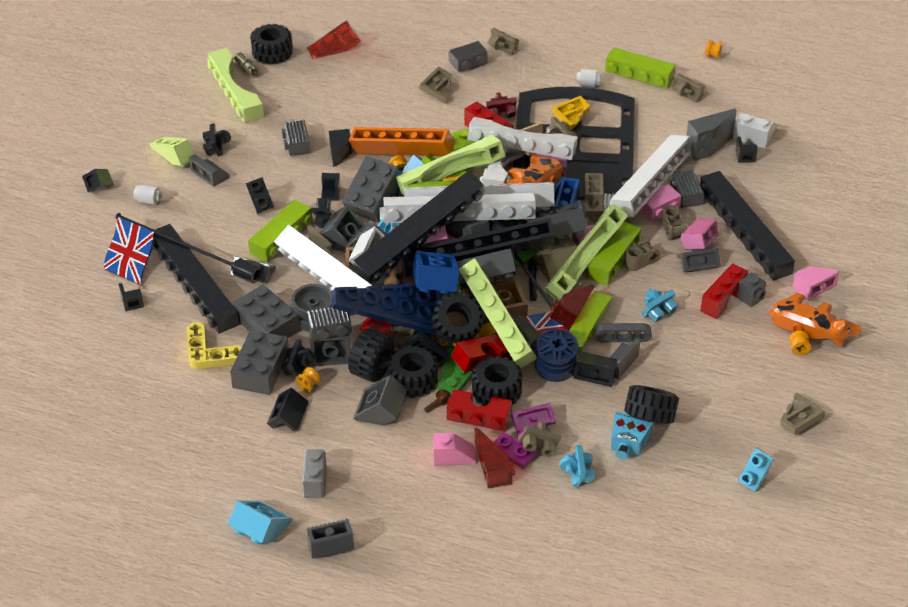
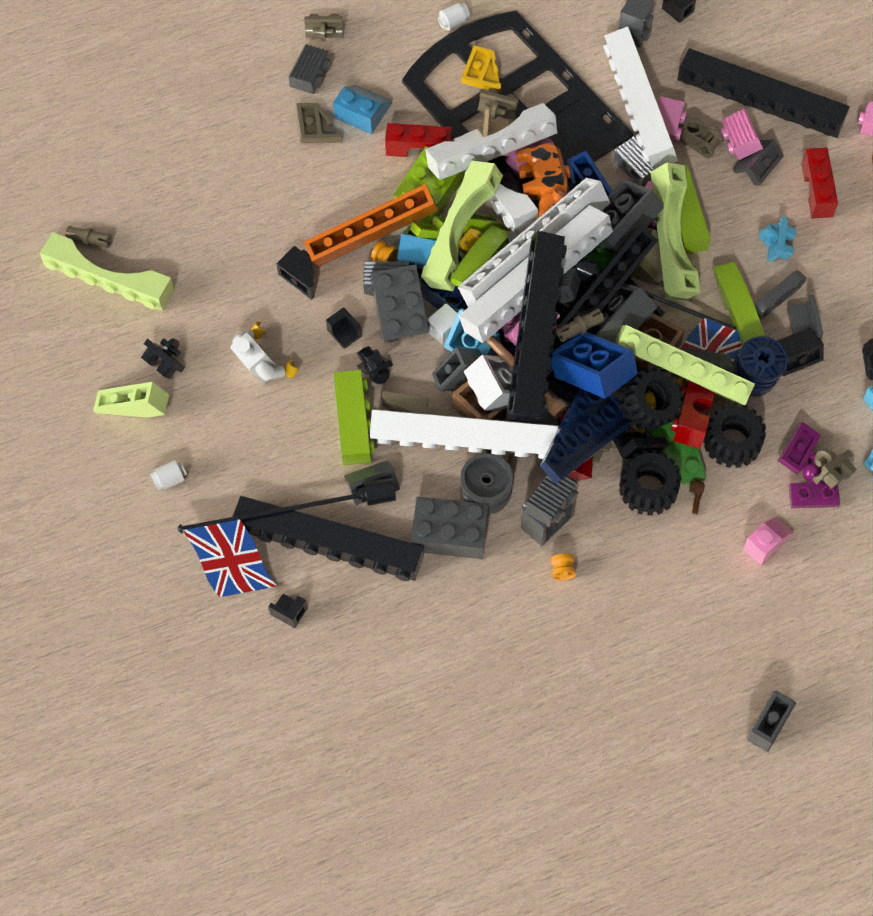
camera: 40 degrees left, 20 degrees up
(96, 179) = (94, 497): black panel -> none
(206, 355) = (434, 615): light yellow beam -> none
(207, 170) = (195, 398): dark grey panel -> none
(258, 521) = (685, 753): medium azure slope -> none
(259, 195) = (289, 392): black hips -> none
(259, 362) = (500, 584): dark grey brick -> none
(261, 164) = (257, 359): none -> white torso
(271, 43) = (86, 179): black tyre -> none
(288, 410) = (578, 615): black panel -> none
(296, 137) = (244, 292): dark grey brick -> none
(297, 359) = (535, 561): black hips -> none
(314, 473) = (680, 663): light grey brick -> none
(336, 41) = (153, 144): clear red slope -> none
(341, 228) = (413, 370): dark grey slope -> none
(370, 355) = (604, 497): black tyre -> none
(381, 402) = (653, 538): dark grey slope -> none
(452, 248) = (580, 325): none -> dark tan pin
(474, 88) = (360, 108): none -> dark azure slope
(492, 416) = (731, 488): red arch -> none
(493, 460) = (812, 521): clear red slope -> none
(502, 104) = (414, 105): dark red hips -> none
(570, 306) = (716, 300): clear red slope -> none
(593, 197) = (603, 156): dark tan slope -> none
(640, 255) = (709, 194): dark tan piece -> none
(688, 187) = (674, 85): dark grey brick -> none
(751, 289) = (842, 163): dark grey brick -> none

